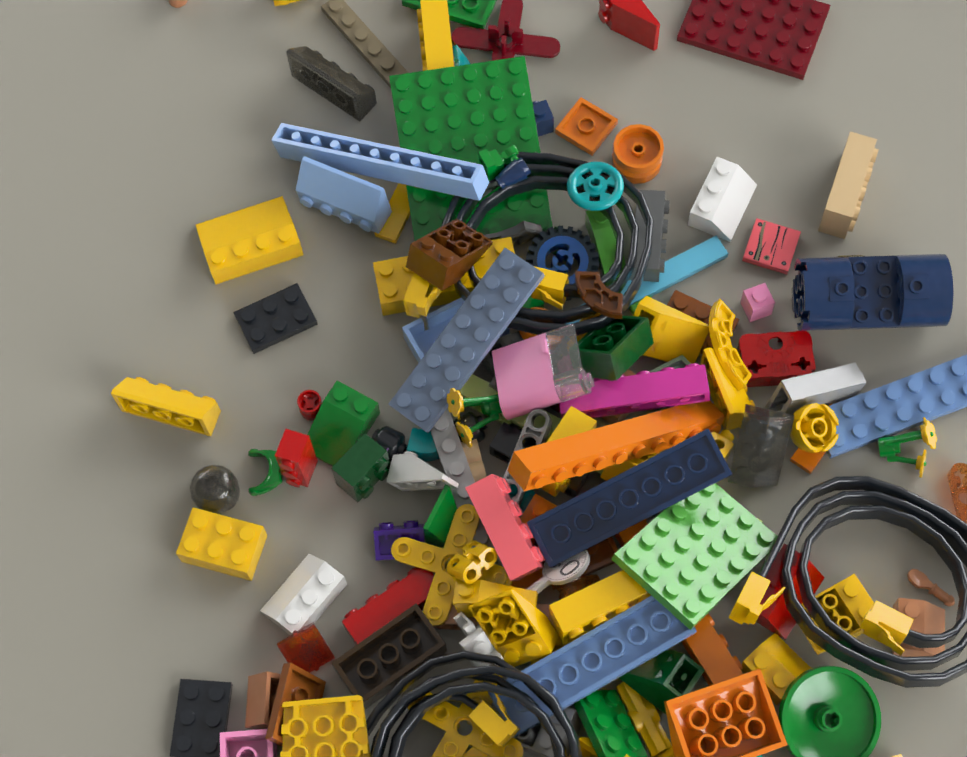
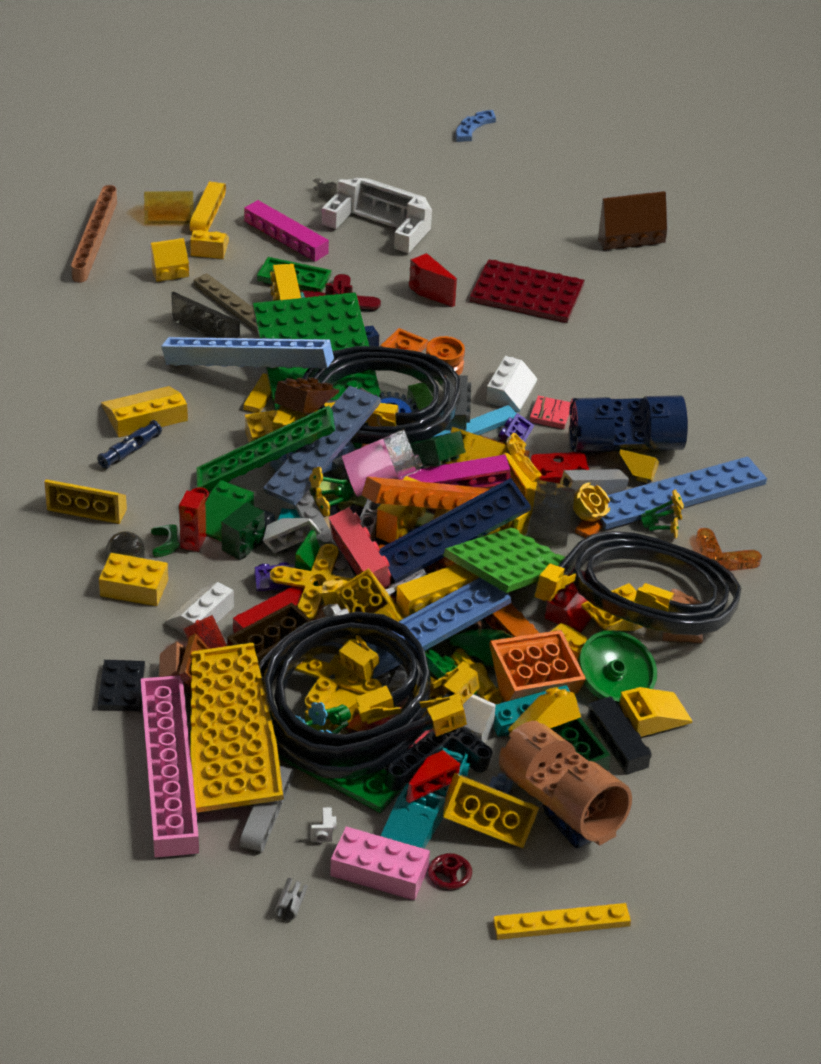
camera: 10 degrees left, 25 degrees down
(224, 305) = (128, 445): none -> dark blue piece
(275, 318) = (167, 454): black plate -> none
(342, 195) = (218, 377): light blue slope -> none
(395, 340) = (266, 448): none -> green plate
(472, 561) = (335, 568): yellow piece -> none
(494, 163) = (339, 347): green piece -> none
(513, 173) = (352, 353): dark blue cone -> none
(597, 295) = (419, 414): reddish brown tile -> none
(606, 199) = (415, 361): teal plate -> none
(723, 283) = (517, 425): none -> dark purple bracket
(757, 302) = (542, 439): bright pink brick -> none
(849, 185) = (607, 368): tan brick -> none
(883, 349) = (640, 465): none -> yellow slope

